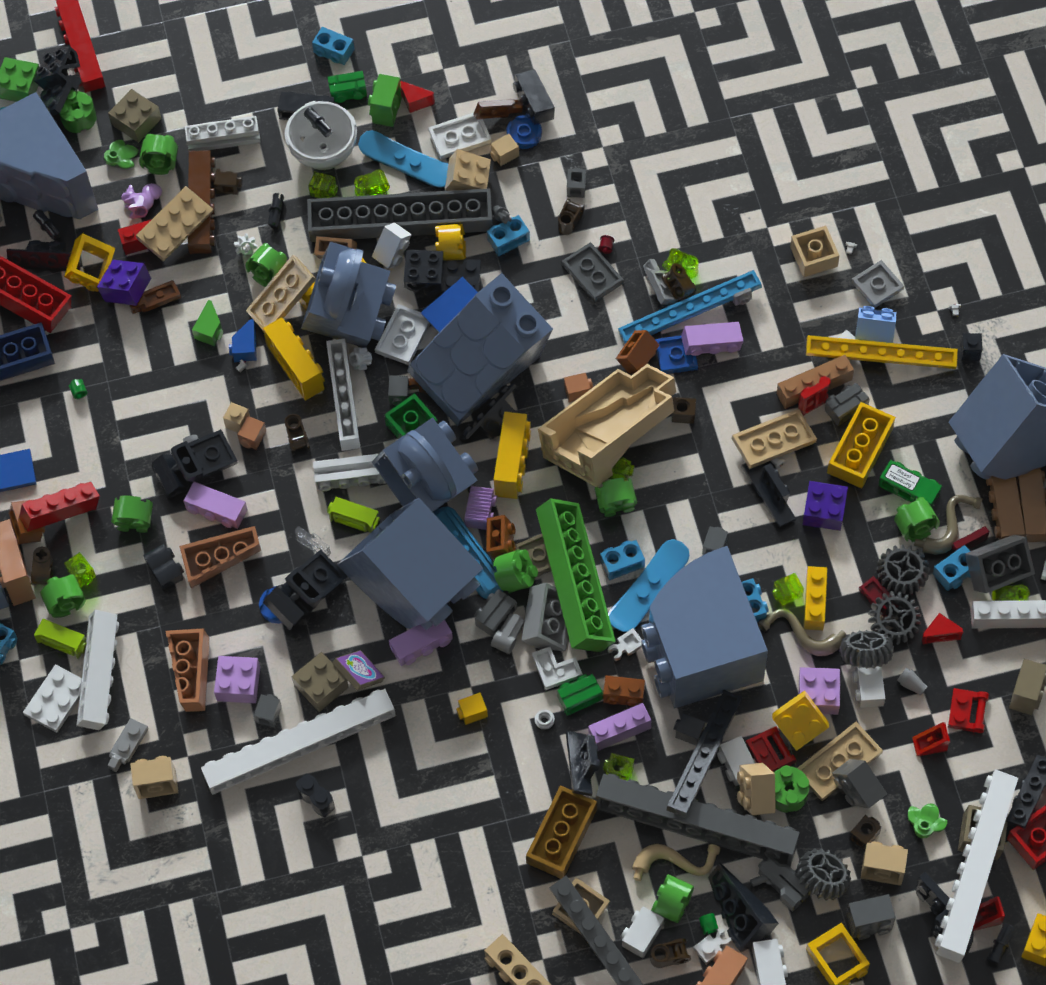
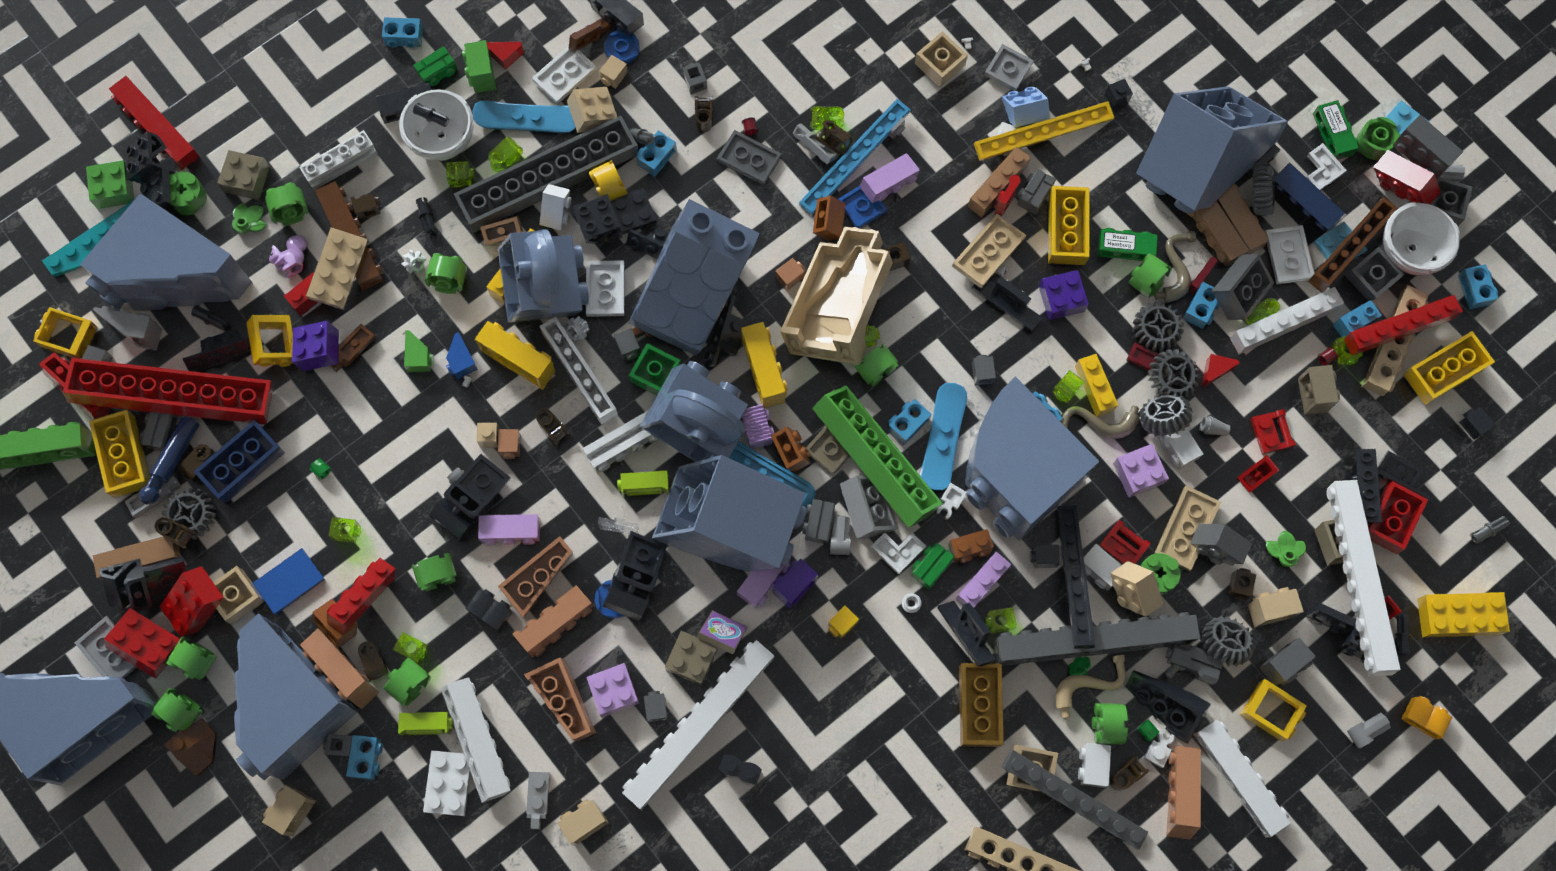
camera: 30 degrees left, 10 degrees up
(70, 441) = (337, 526): none -> clear neon green brick
(213, 599) = (553, 622): none -> nougat wedge
(281, 293) = (473, 297): tan plate -> none
(444, 655) = (794, 583): none -> dark purple brick
(449, 304) = (642, 244): blue tile -> none
(515, 571) = (821, 475): bright green brick -> none
(672, 840) = (1079, 666): none -> green plant
(800, 720) = (1142, 507): yellow brick -> none

